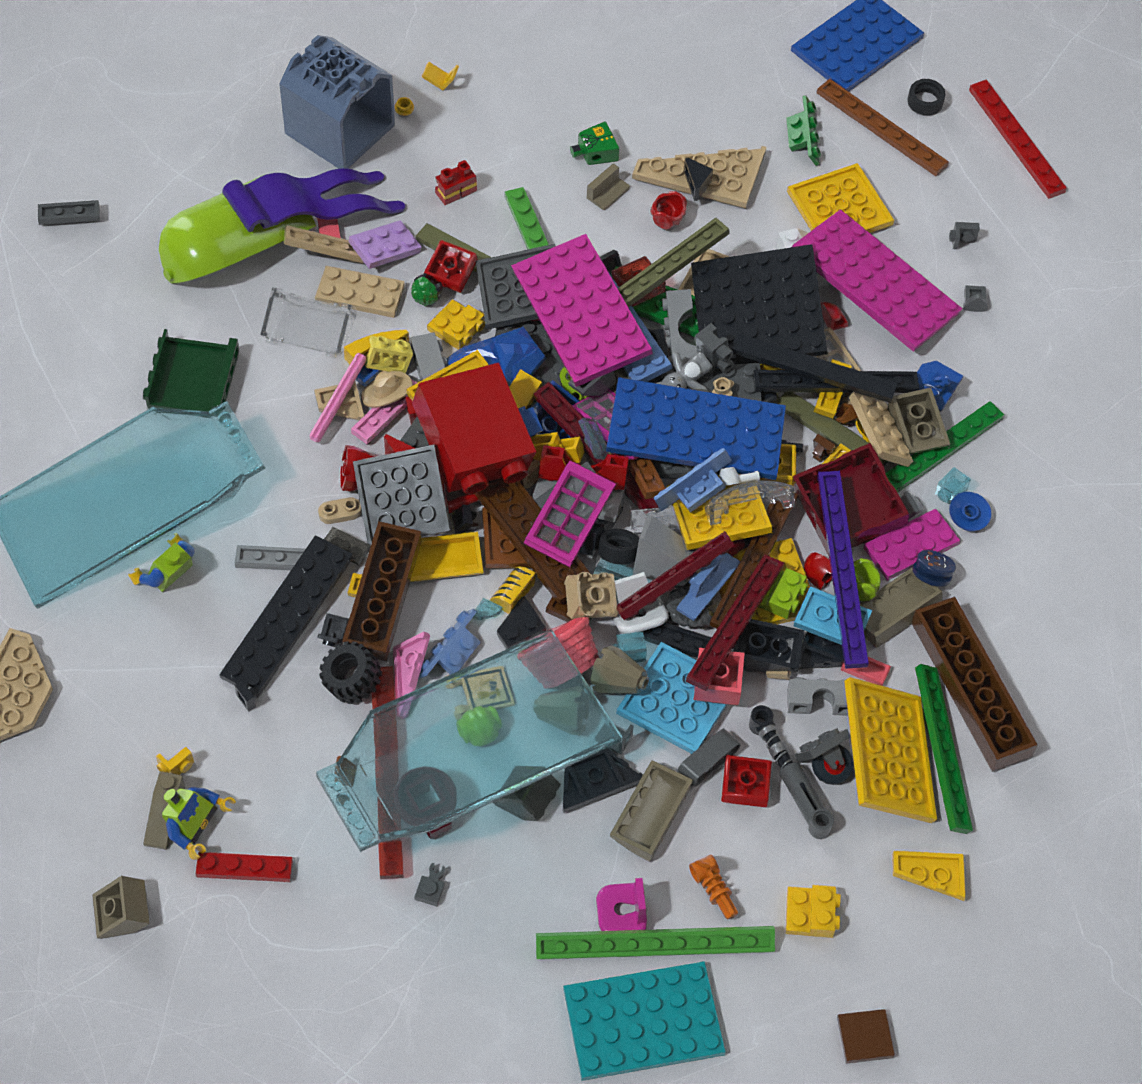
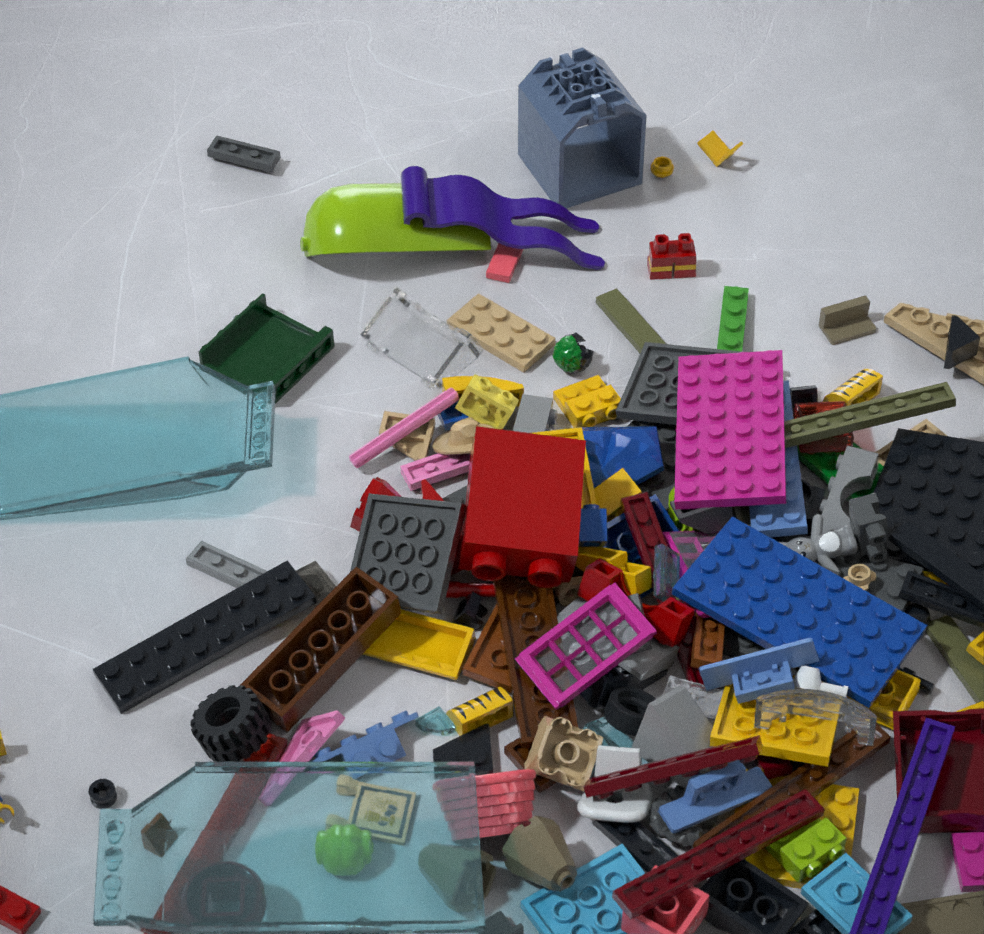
camera: 30 degrees right, 10 degrees down
(167, 566) = (111, 530): lime torso -> none
(246, 695) = (105, 703): black plate -> none
(282, 766) = (102, 785): none -> black bush
(320, 243) = (486, 269): tan plate -> none
(333, 630) = (242, 669): black bracket -> none
(340, 511) = (333, 548): tan plate -> none
(384, 244) = (555, 293): lavender plate -> none
(447, 255) = (614, 338): red brick -> none
(596, 145) = (858, 273): green torso -> none
(633, 645) = (582, 835): clear light blue brick -> none
(640, 241) = (857, 389): none -> yellow brick
(668, 209) = (906, 366): red hair -> none
(818, 570) = (869, 840): red brick -> none
(822, 447) = (956, 696): reddish brown tile -> none
(867, 579) = (925, 875): lime hair -> none

